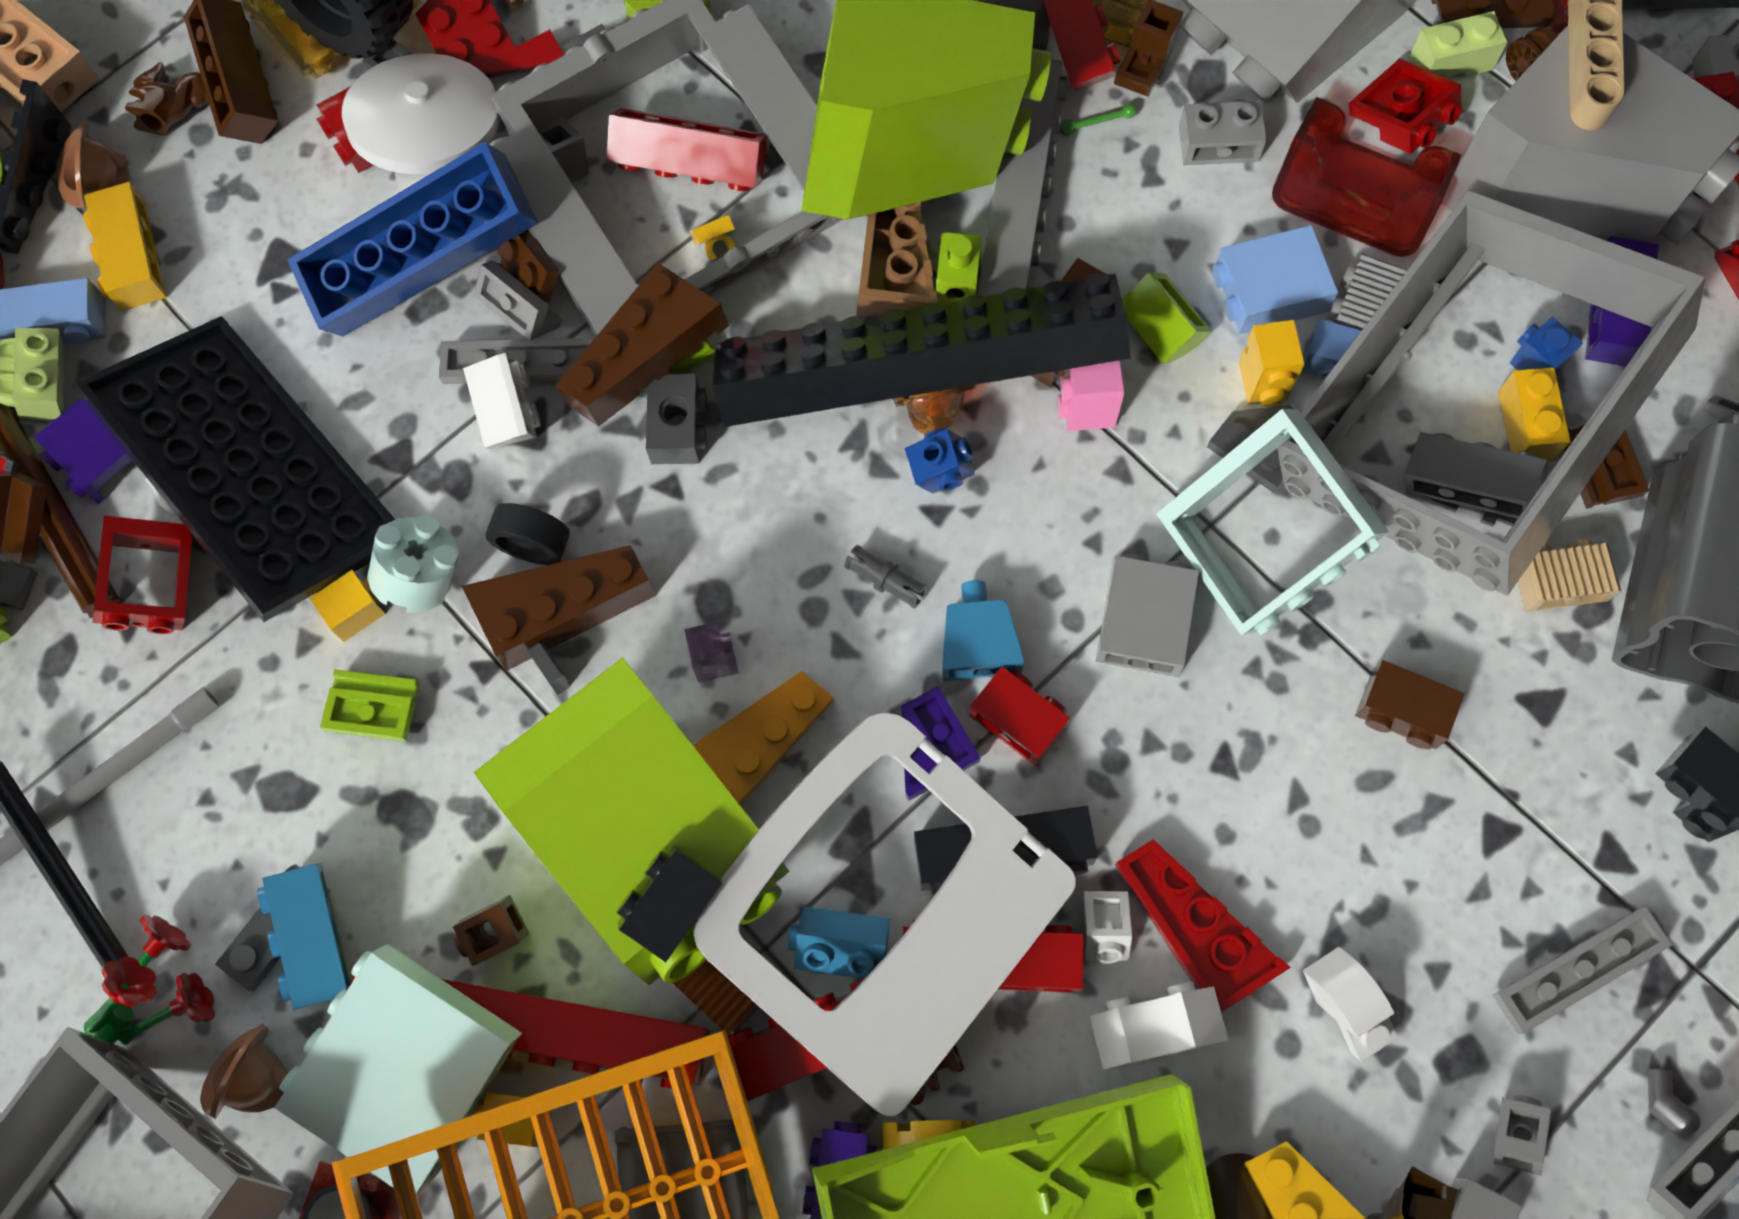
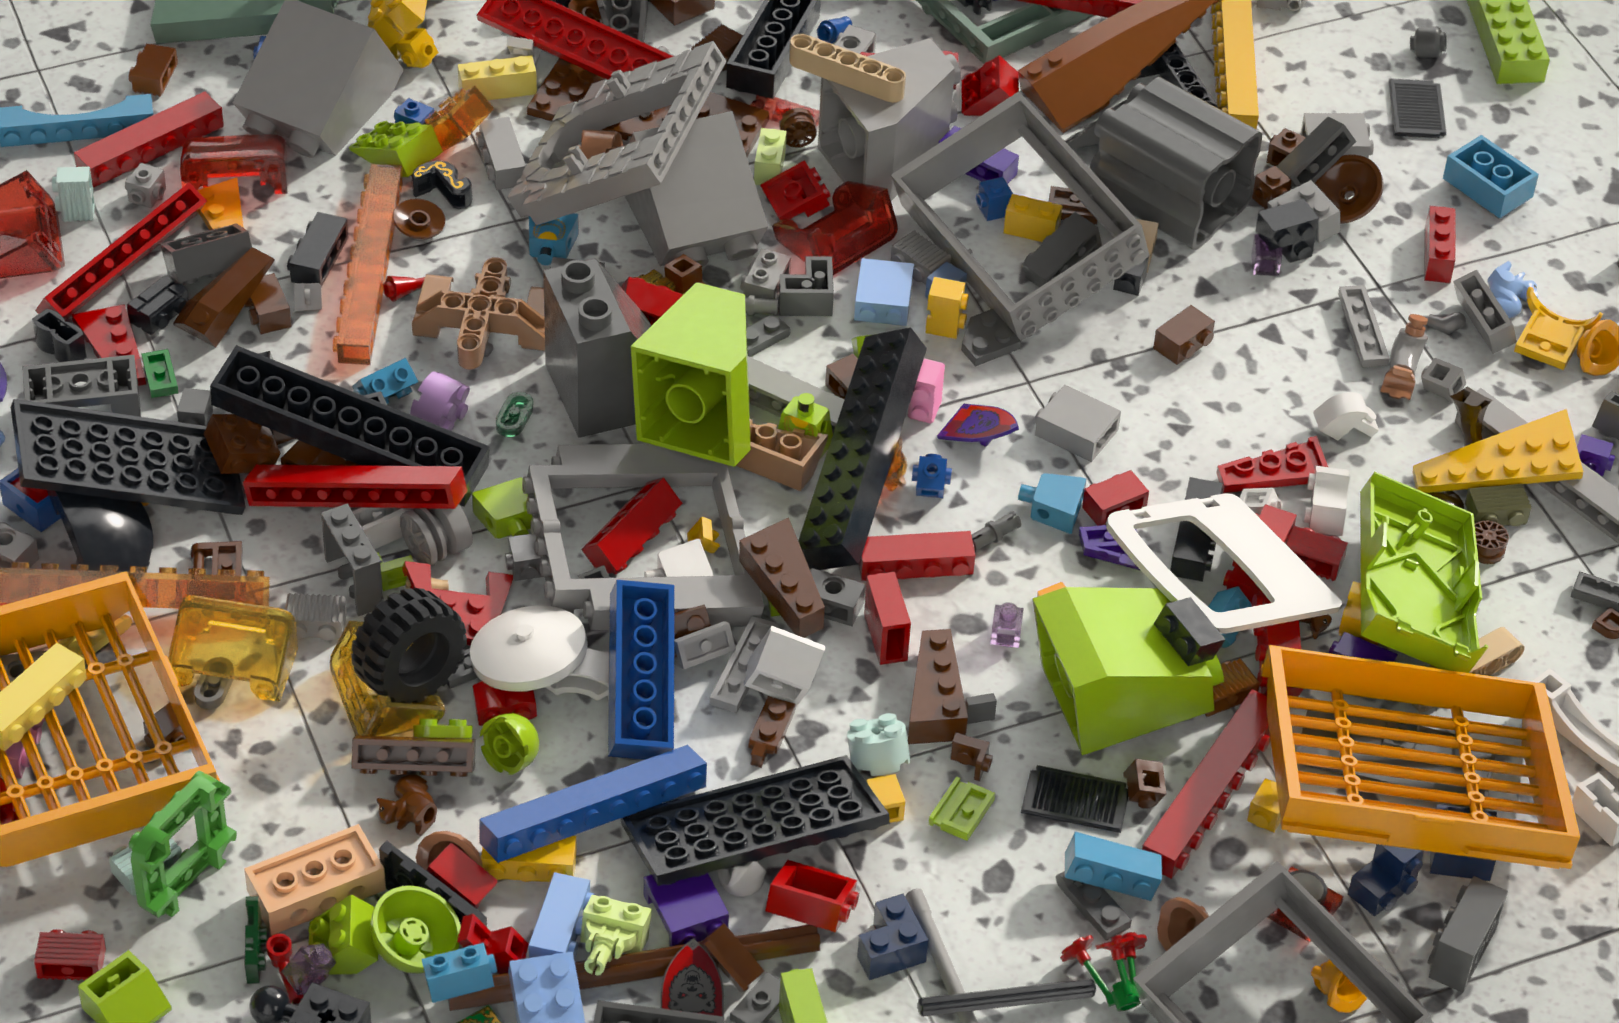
camera: 75 degrees left, 25 degrees down
(46, 186) = (462, 875): none -> red panel
(116, 704) = (895, 942): none -> dark blue brick
(198, 276) = (592, 803): none -> blue brick
(282, 83) = (430, 729): none -> lime plate
(285, 158) = (509, 743): none -> lime cylinder
(395, 1061) = (1220, 832): light aqua brick -> none
(426, 431) = (770, 729): none -> reddish brown hinge
(450, 847) = (1076, 798): none -> black window
(467, 682) = (972, 752): none -> reddish brown bracket
(527, 533) = (884, 685): black tyre -> none
(645, 233) = (682, 560): none -> white torso
(645, 493) = (887, 618): none -> red brick
(792, 496) = (919, 555): none -> brick
(1044, 1038) = (1319, 552): none -> red brick
(1077, 488) = (979, 424): none -> shield
(1110, 162) = (765, 334): none -> dark grey hinge
(1165, 135) = (761, 305): none -> light grey pin
(1216, 576) = (1099, 320): light aqua window -> none
(1218, 193) = (808, 293): none -> dark grey brick
(1493, 602) = (1133, 279): none -> black brick
(1536, 1058) = (1404, 358): none -> piece
(1639, 772) = (1263, 260): none -> clear purple brick

